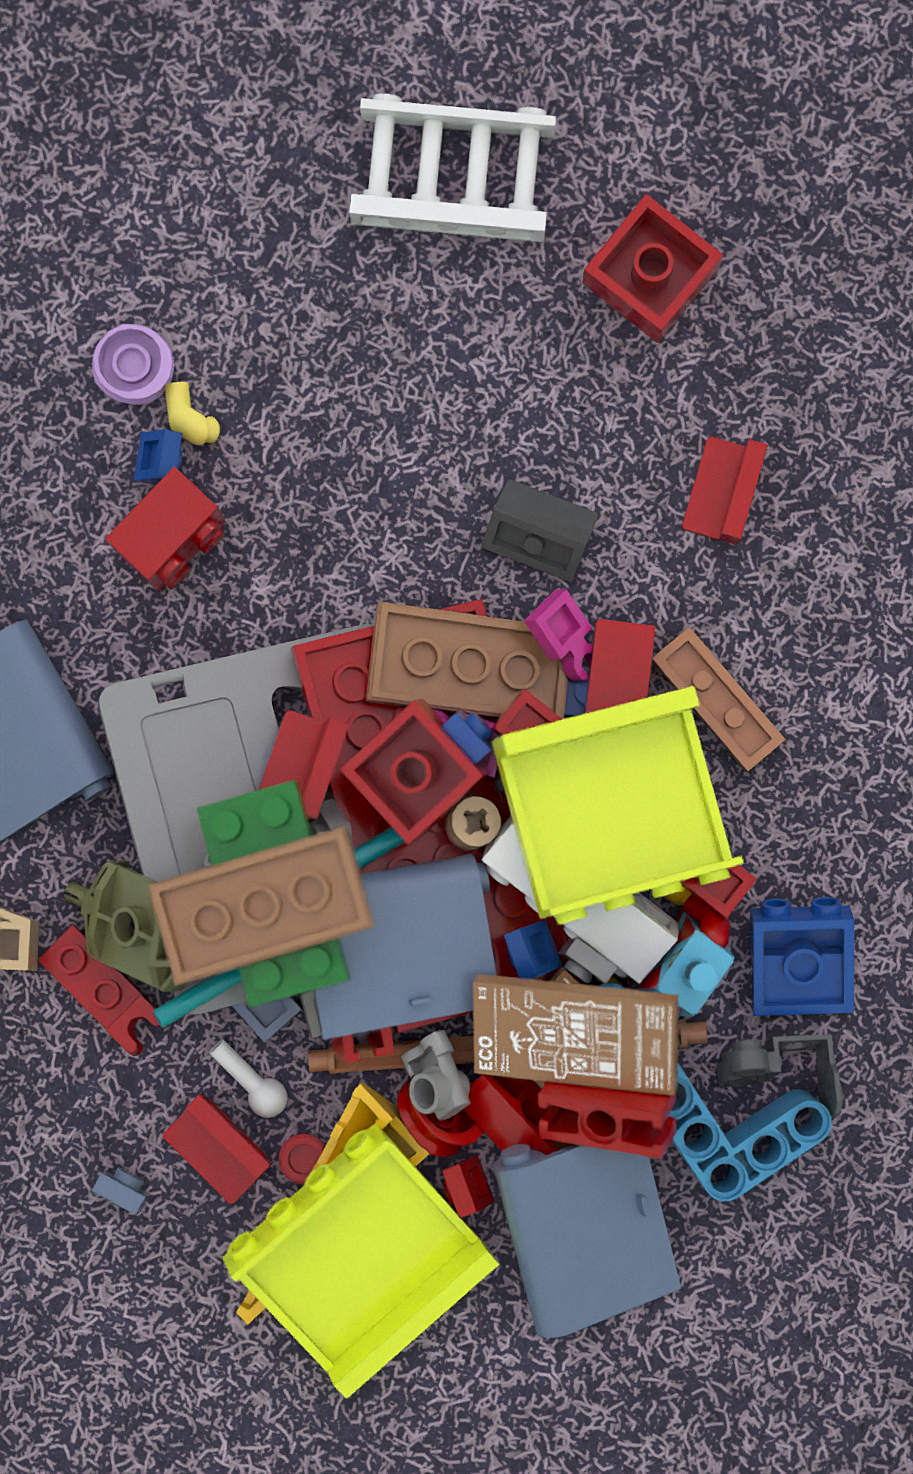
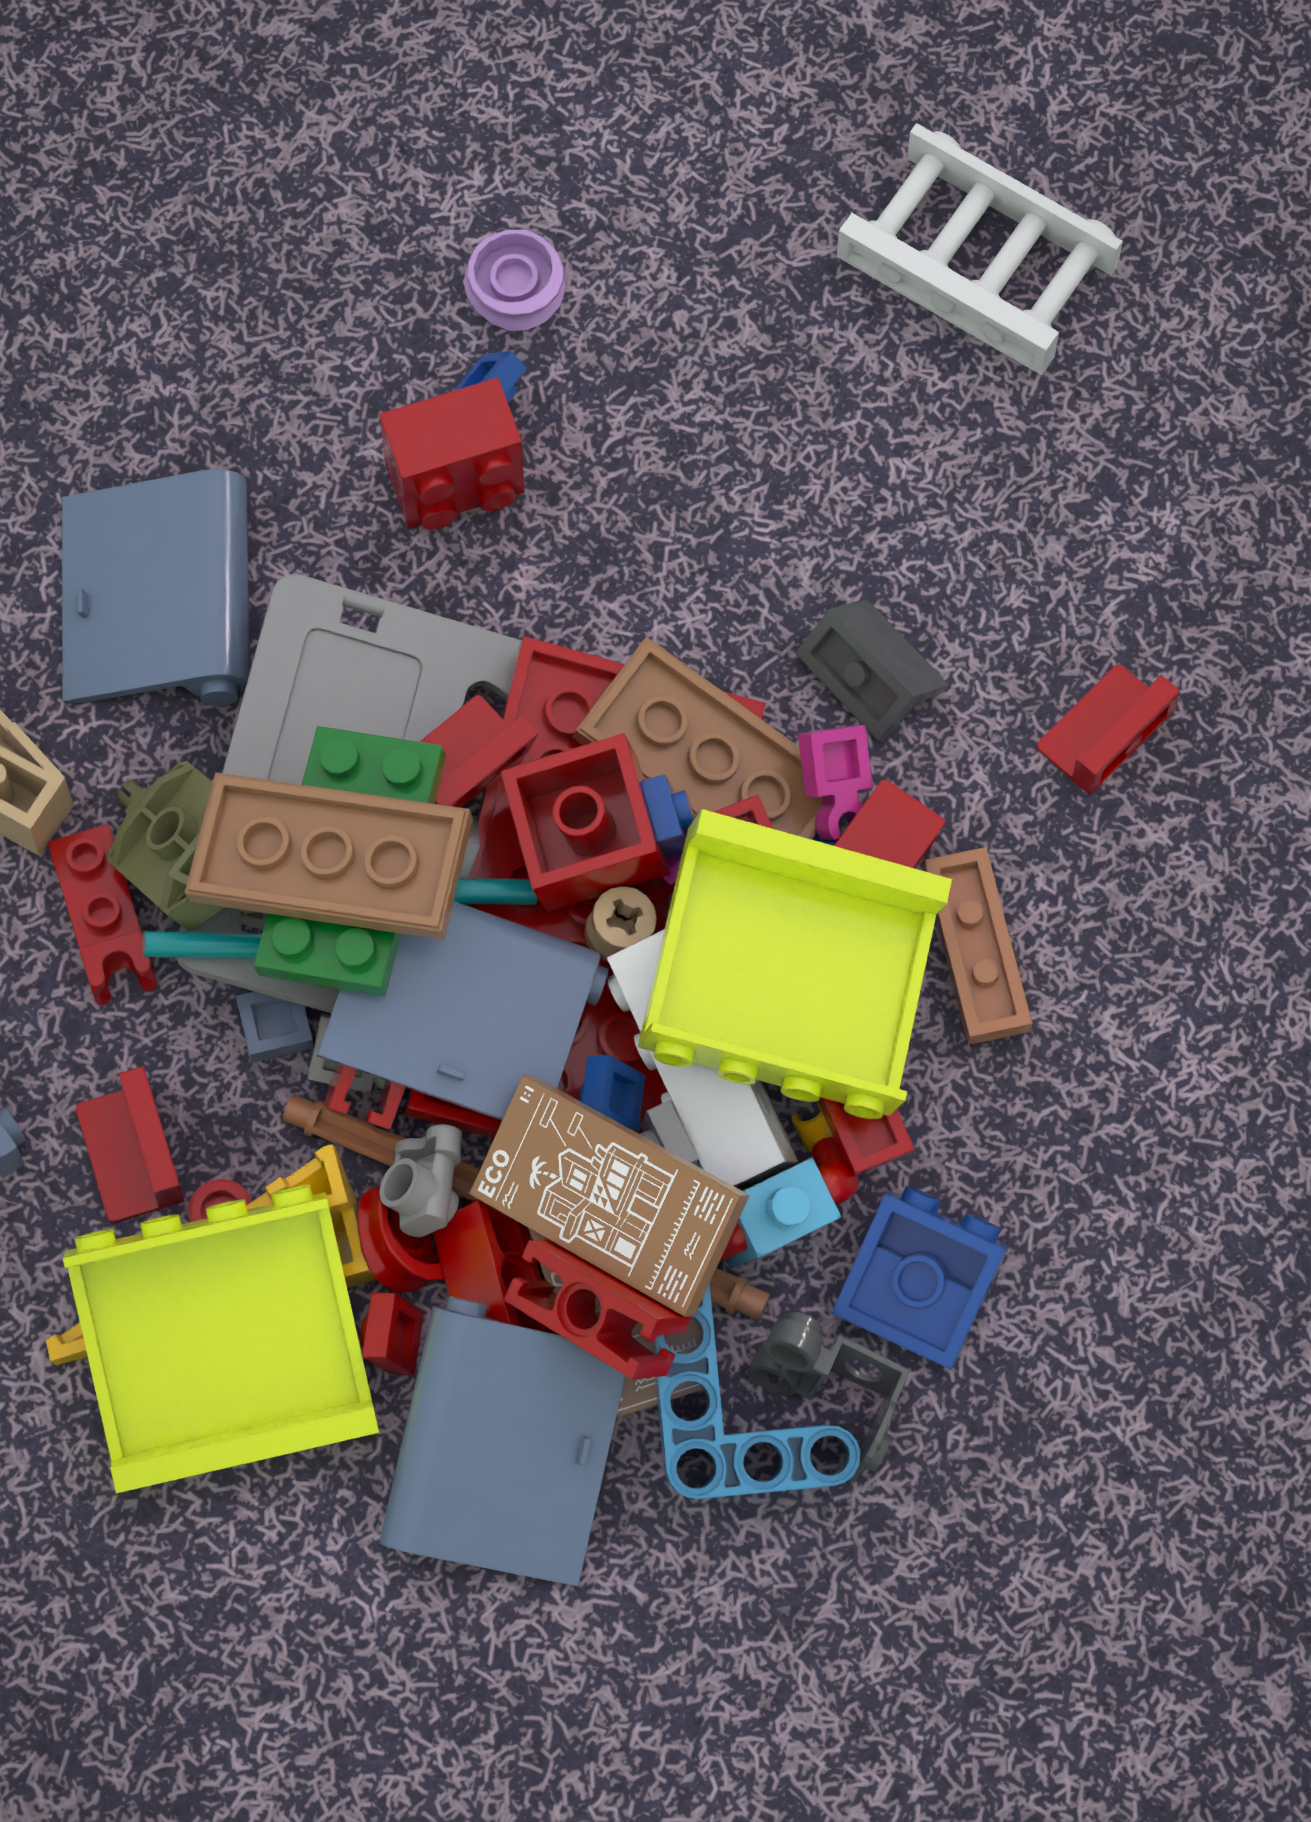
camera: 20 degrees right, 15 degrees down
(186, 420) = (544, 370): light yellow arm -> none
(266, 1096) = (218, 1123): white bar -> none
(652, 268) = (1147, 448): red brick -> none

